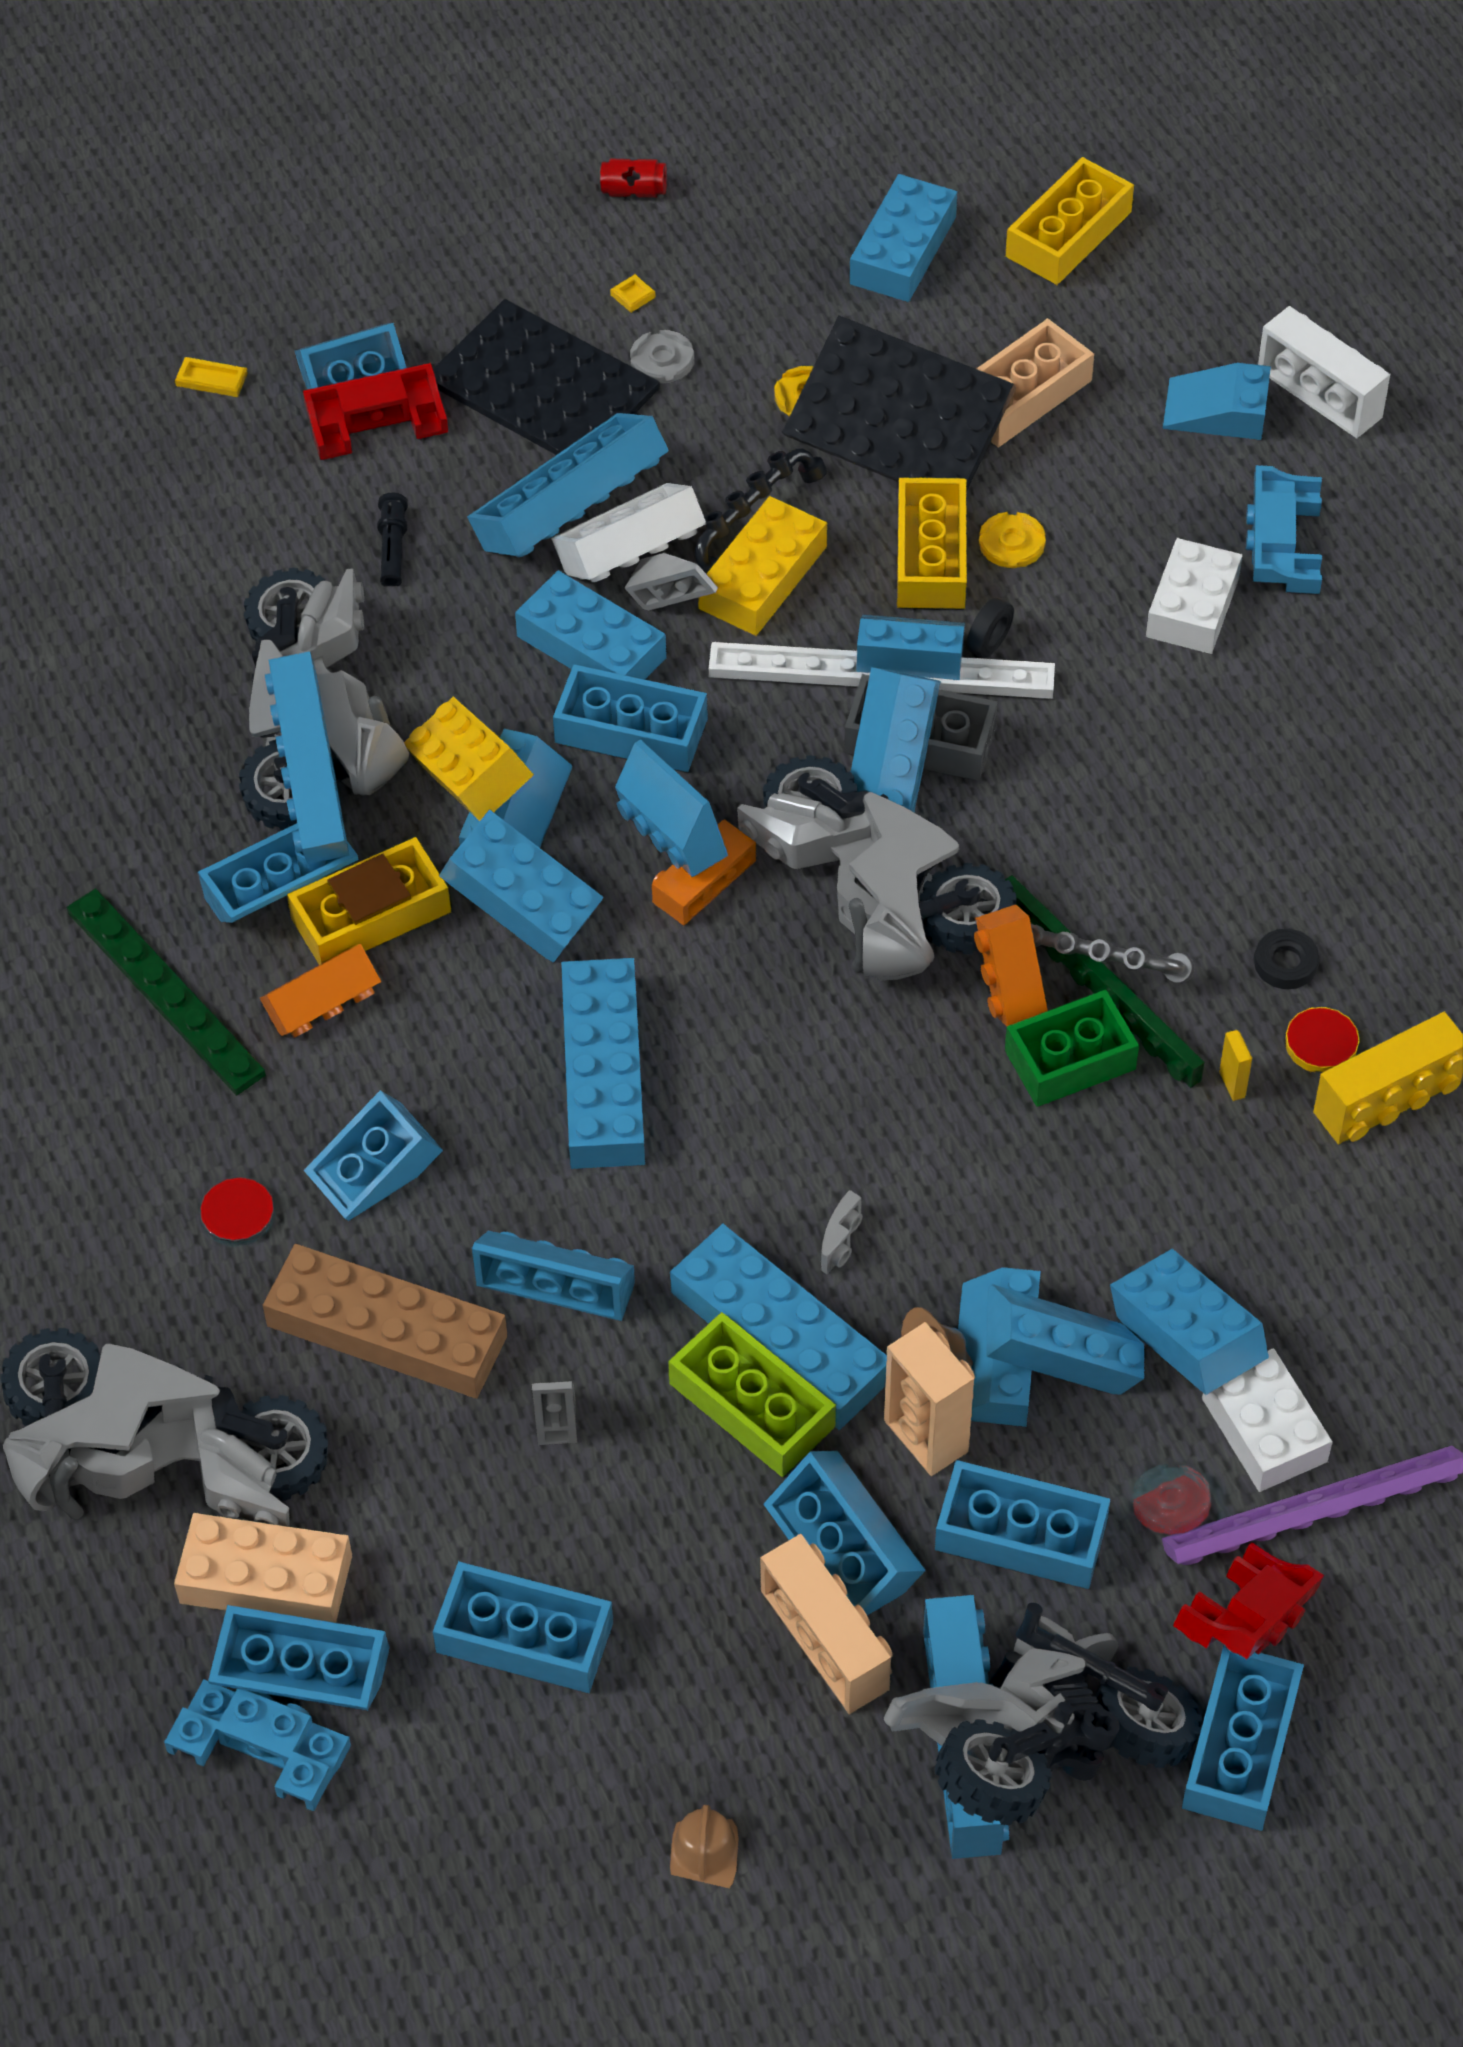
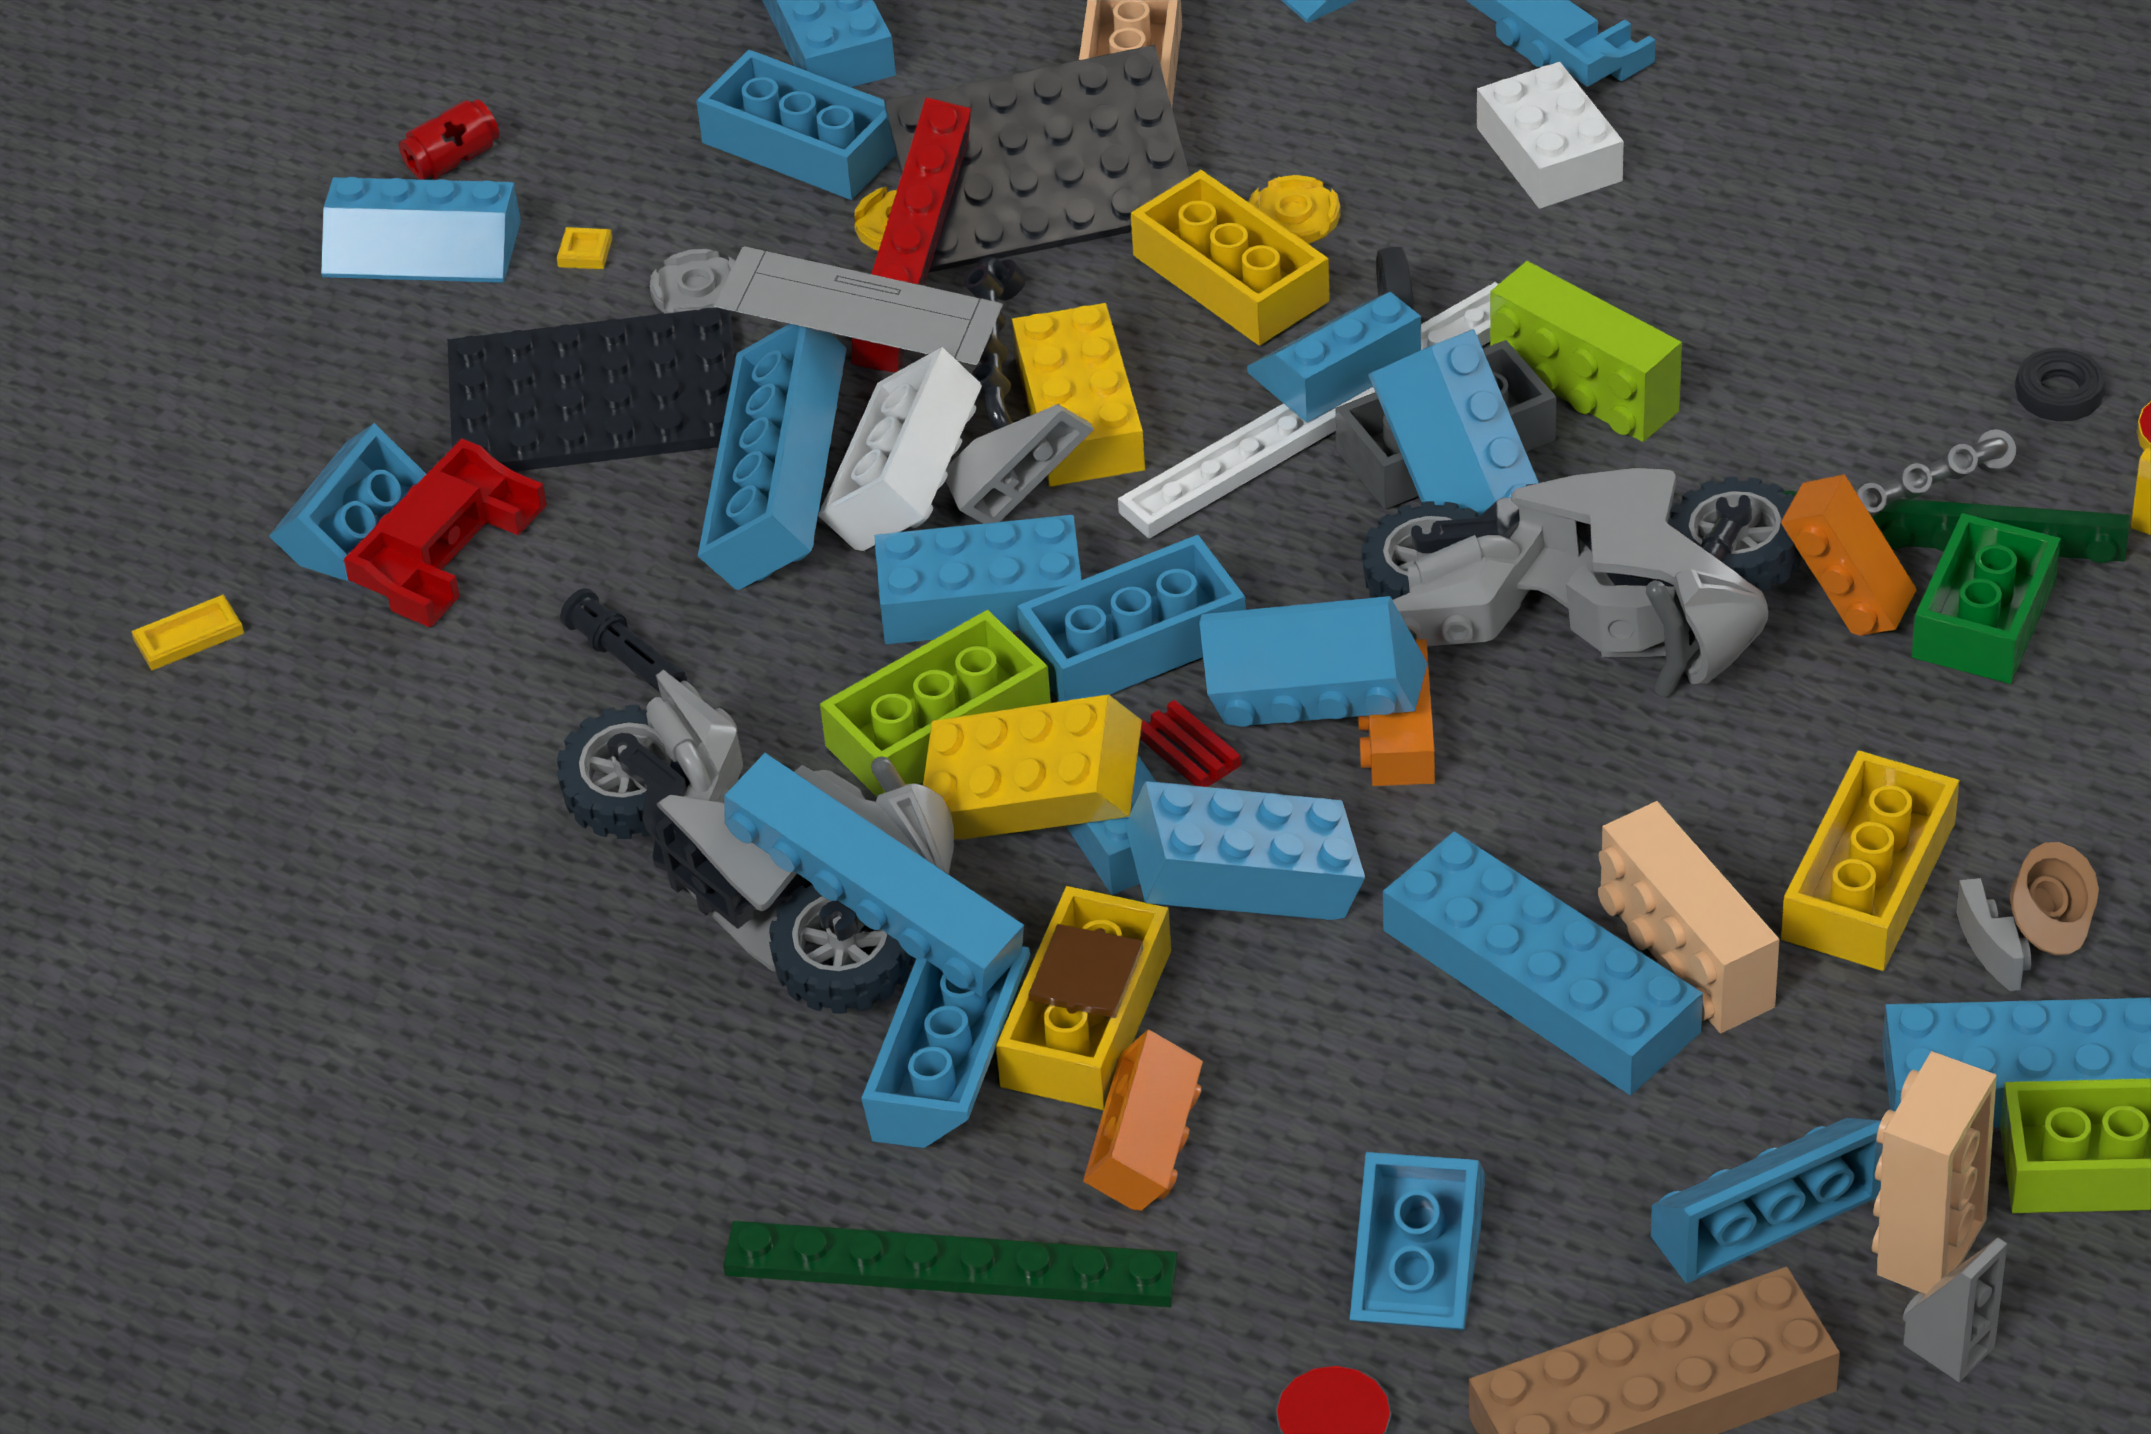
camera: 40 degrees left, 10 degrees down
(496, 686) = (956, 675): none -> lime brick
(559, 223) = (419, 229): none -> slope
(590, 785) = (1219, 748): none -> red tile
(609, 1327) = (1933, 1172): none -> light nougat brick
(685, 430) = (858, 304): none -> light grey sticker
(690, 1097) = (1688, 915): none -> light nougat brick
(770, 407) = (918, 212): none -> red brick
(805, 291) = (797, 124): none -> dark azure brick
(825, 1142) = (1870, 860): none -> yellow brick
(885, 1239) = (2054, 898): none -> medium nougat piece
(1037, 740) = (1589, 350): none -> lime brick

